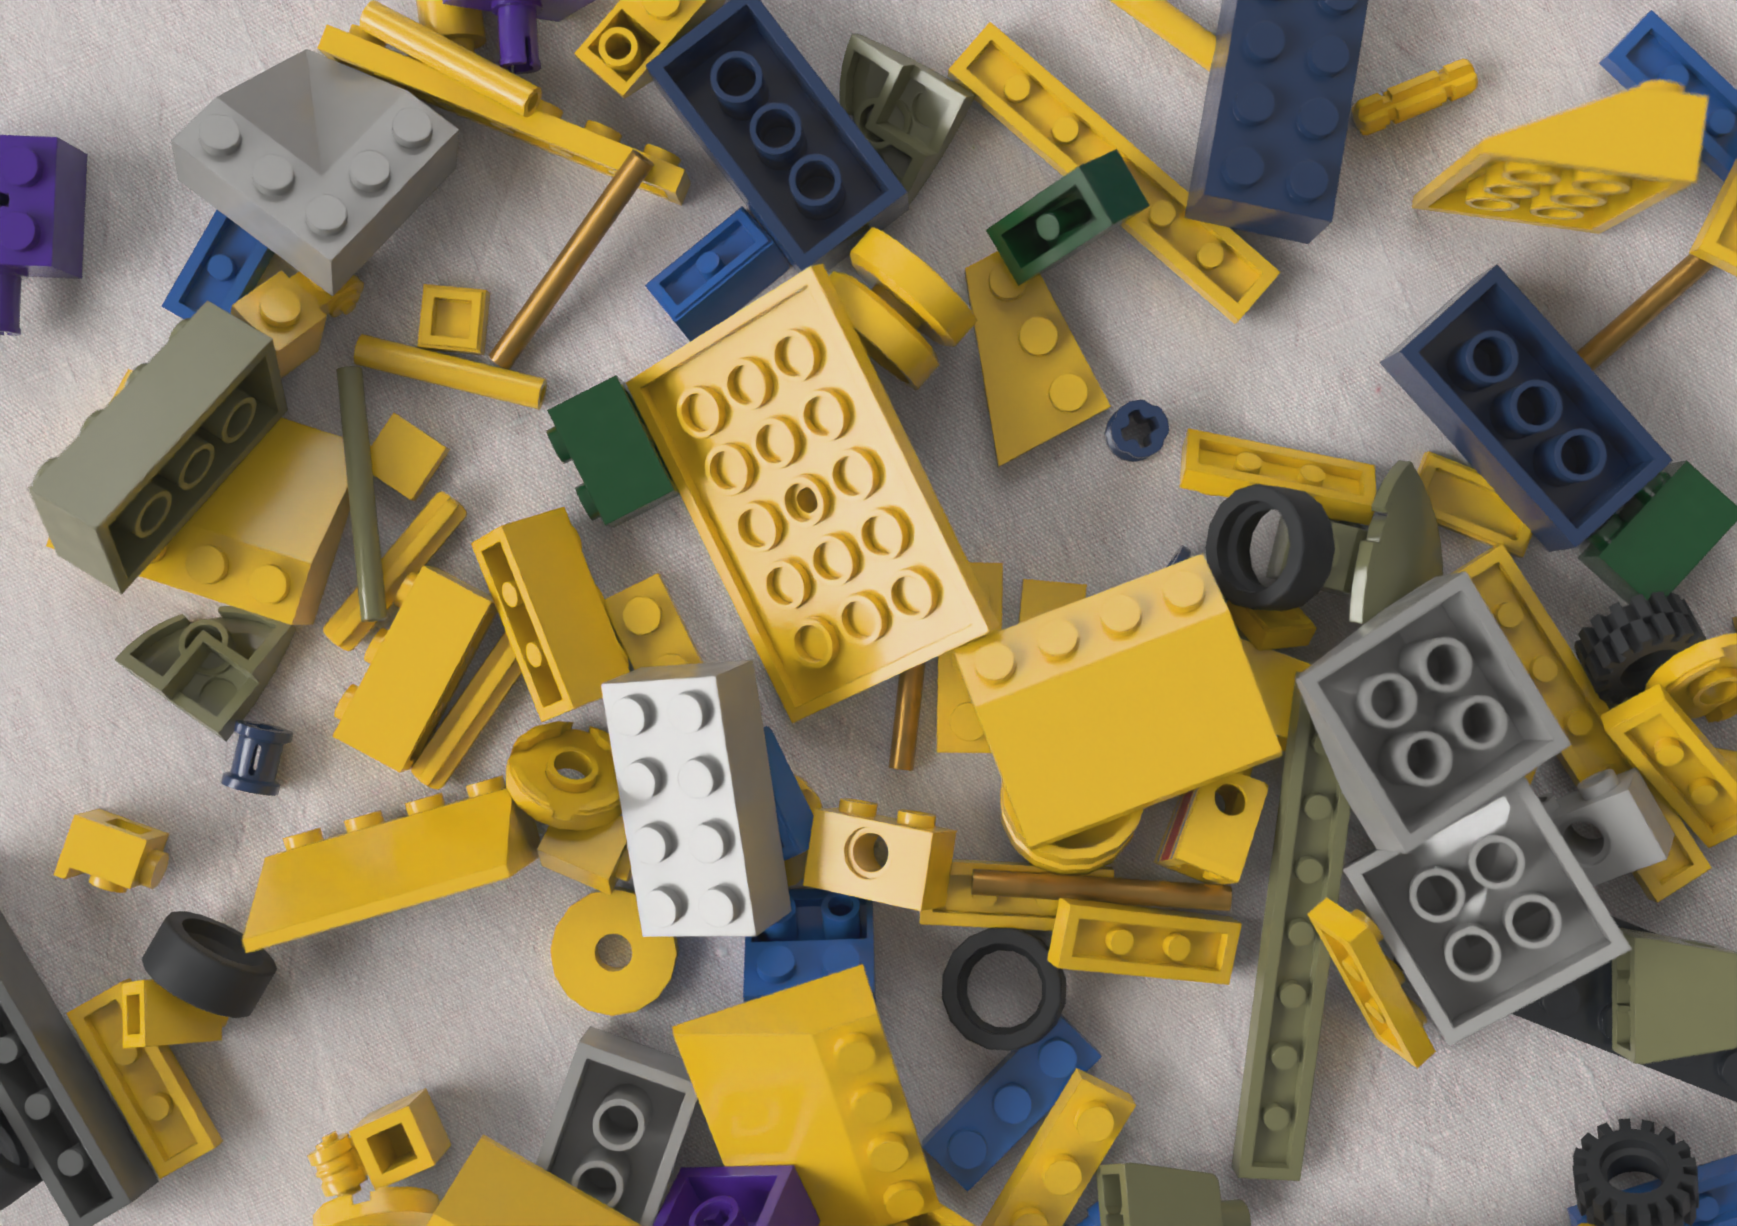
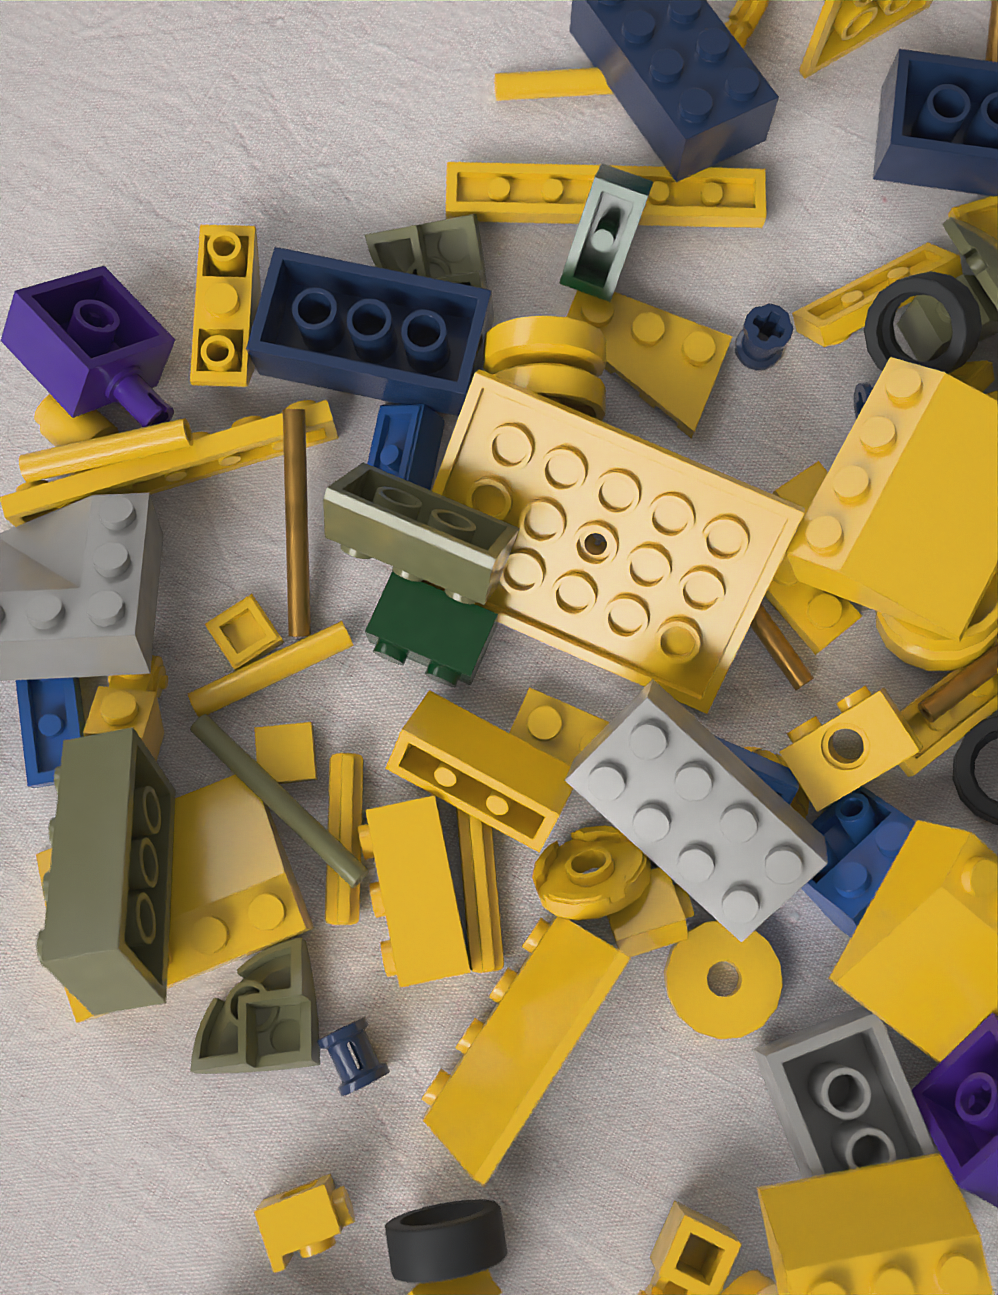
camera: 50 degrees left, 10 degrees down
(660, 362) = (418, 533): none -> olive slope

